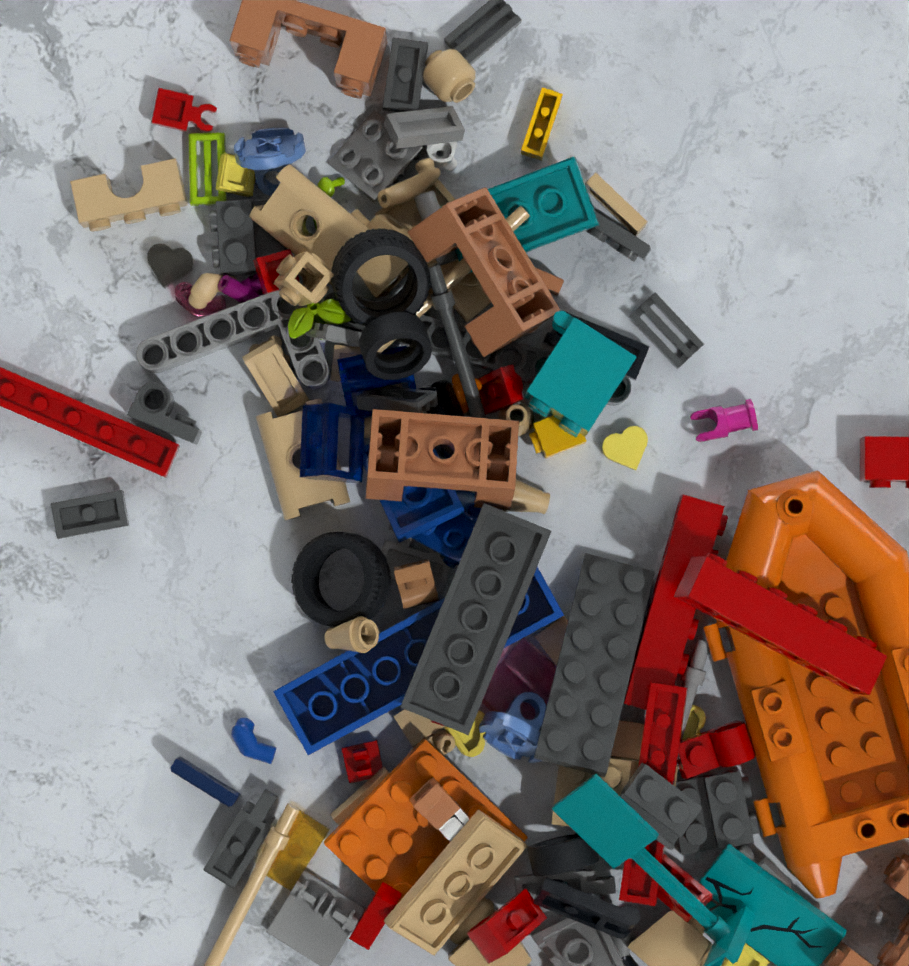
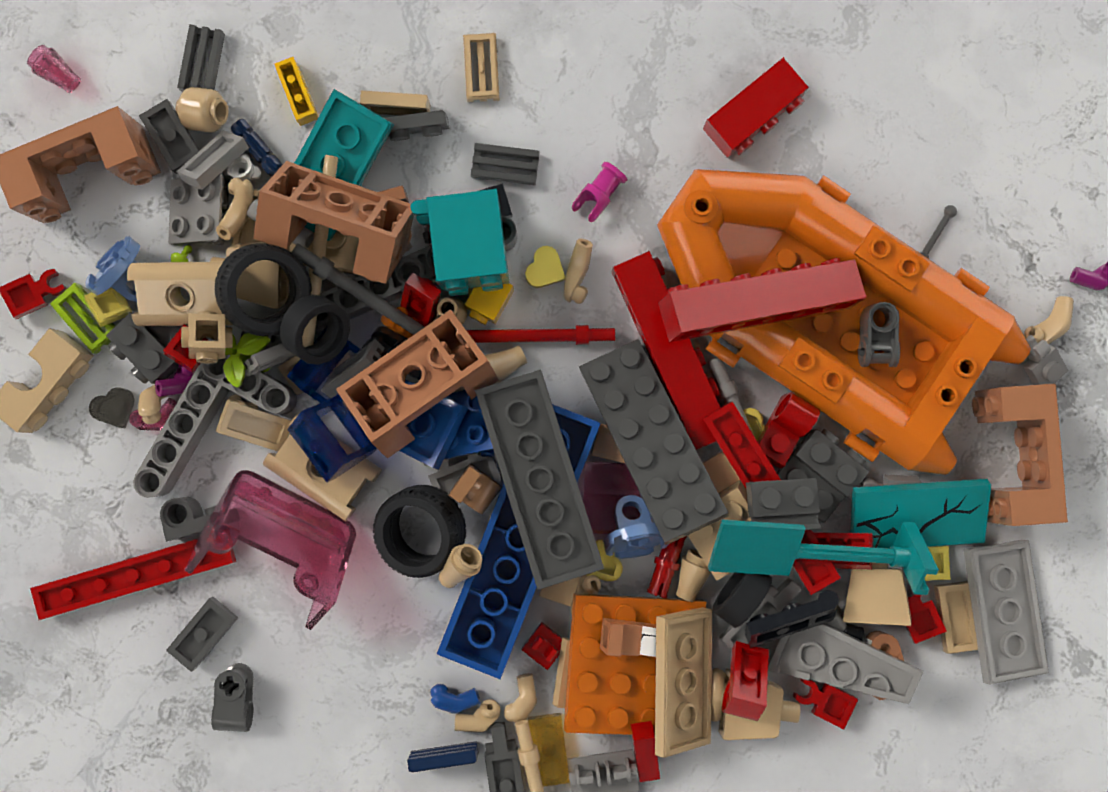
camera: 45 degrees left, 0 degrees up
(67, 595) = (232, 704): none -> dark grey piece
(233, 489) = (285, 528): none -> clear pink windscreen
(260, 778) = (481, 720): none -> tan arm
(308, 794) = (525, 702): none -> tan arm
(470, 145) = (257, 147): none -> dark blue axle
(519, 780) = (665, 567): none -> red pin
(534, 806) = (692, 575): none -> tan cone
(608, 527) = (581, 335): none -> red bar
(650, 472) = (576, 272): none -> tan arm
(696, 256) = (482, 94): none -> tan tile
(854, 739) = (879, 338): none -> dark grey piece

